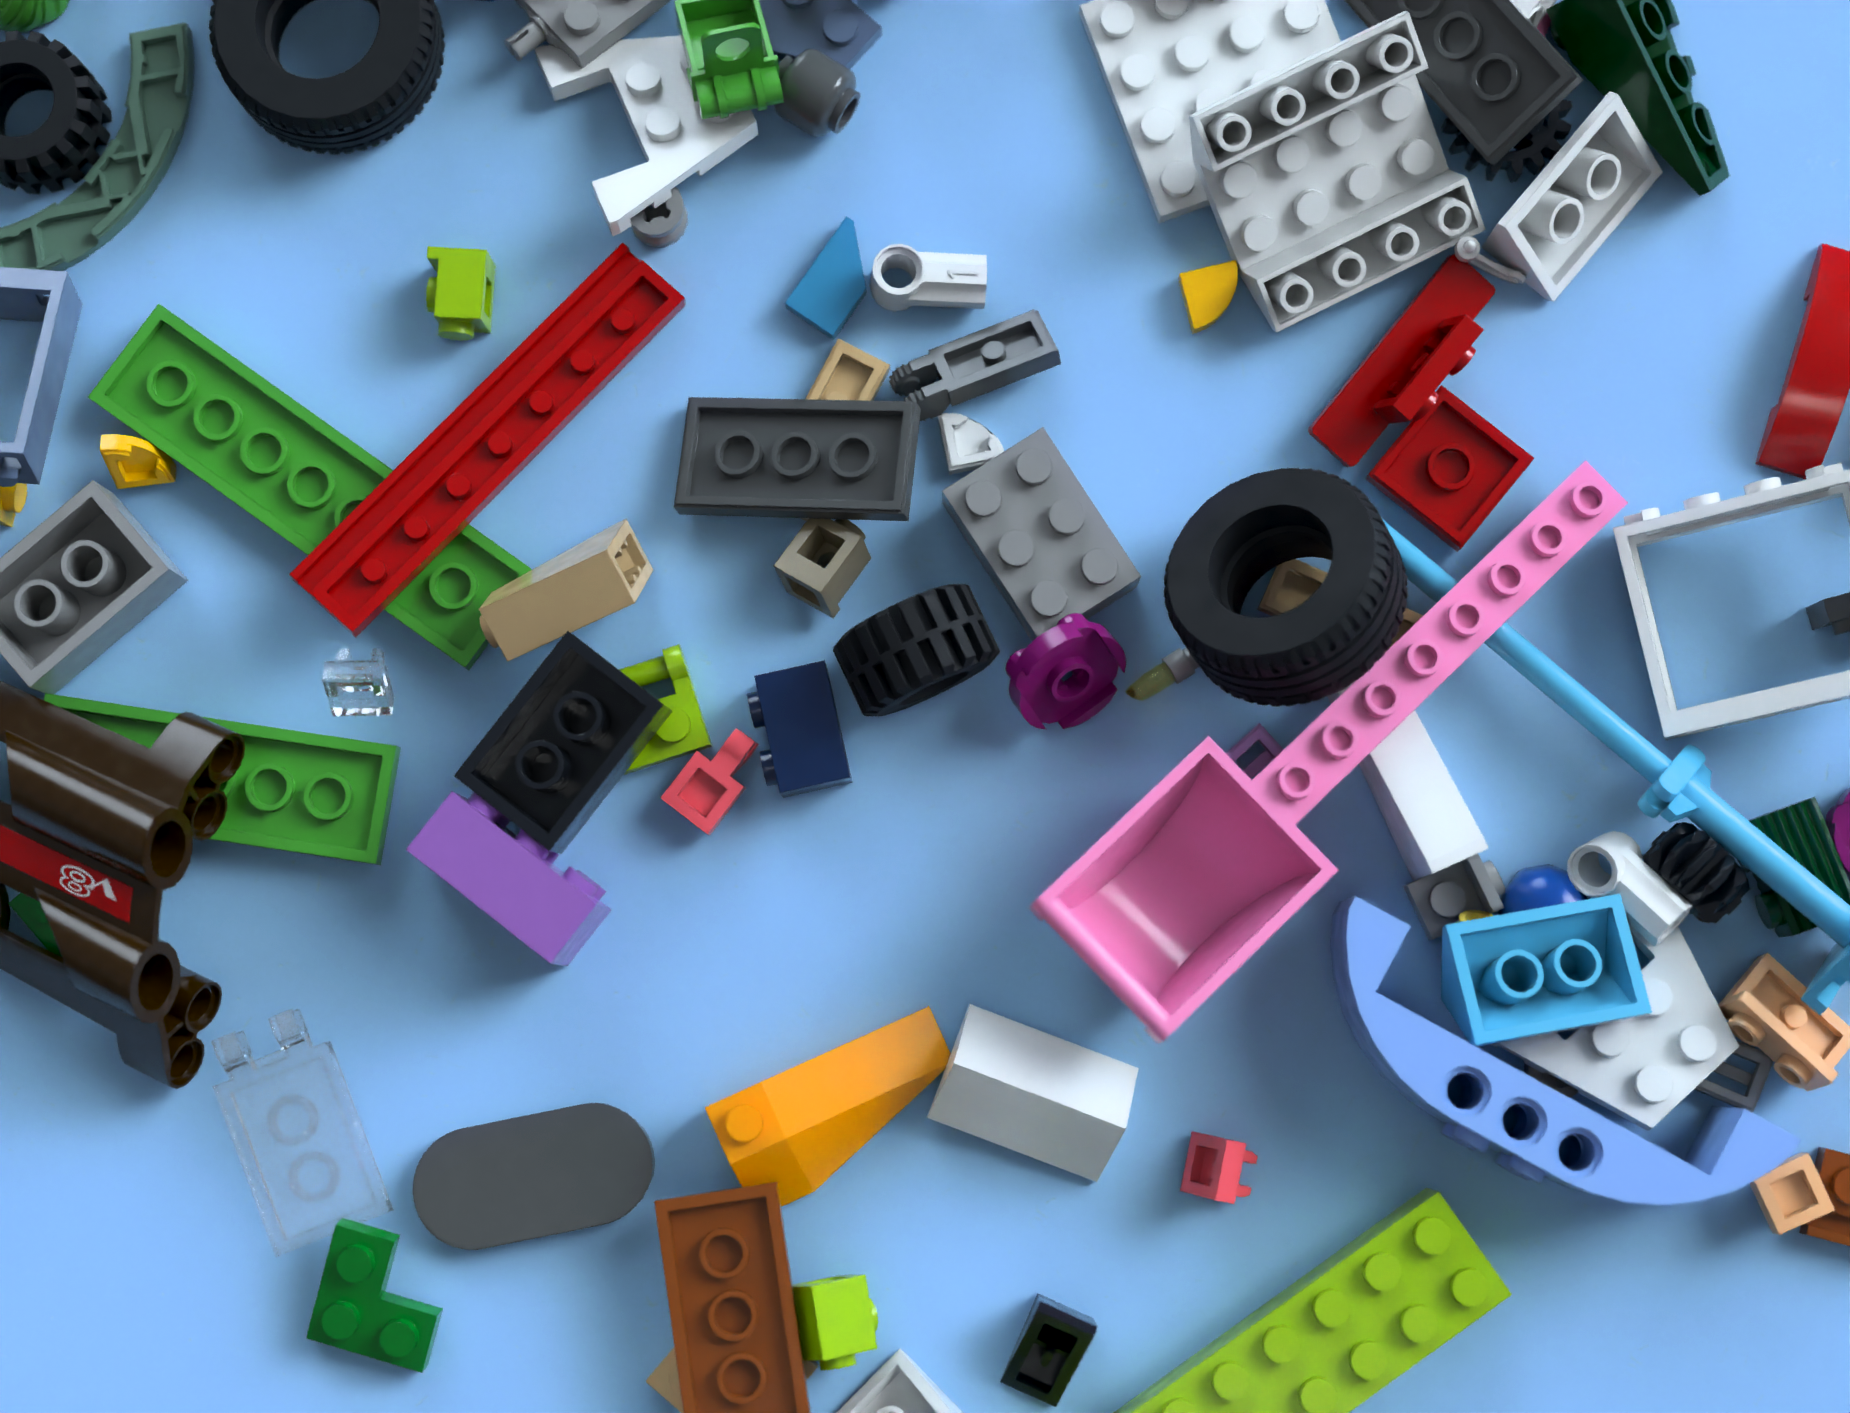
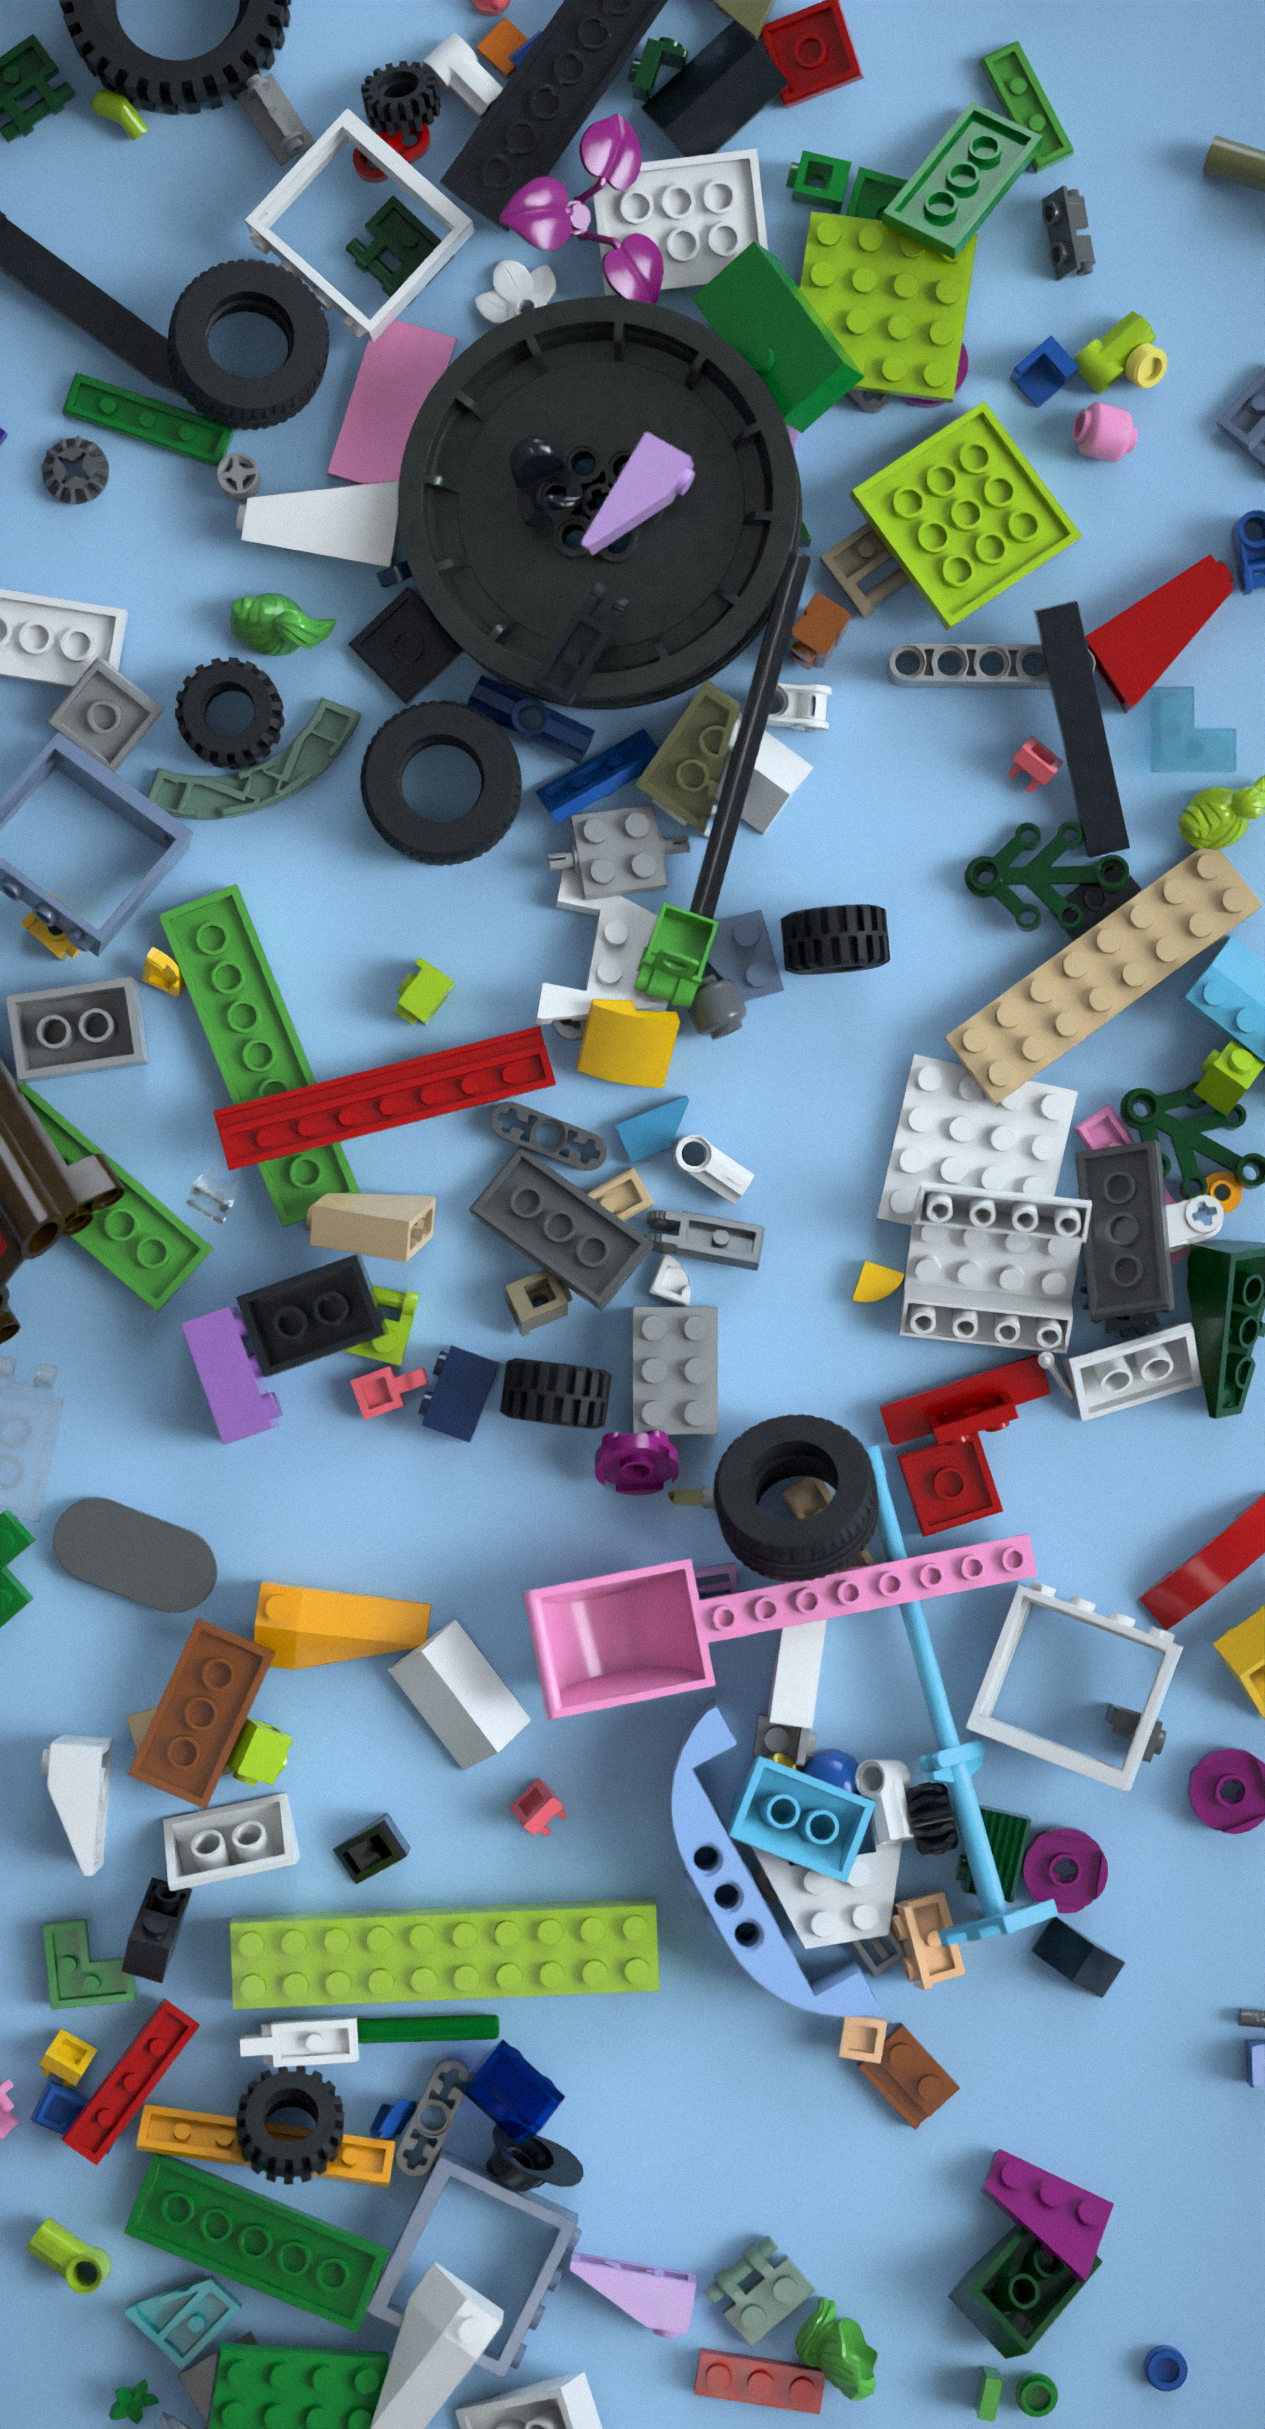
camera: 25 degrees right, 5 degrees up
(737, 193) = (627, 1043): none -> yellow slope
(755, 346) = (523, 1115): none -> dark grey beam

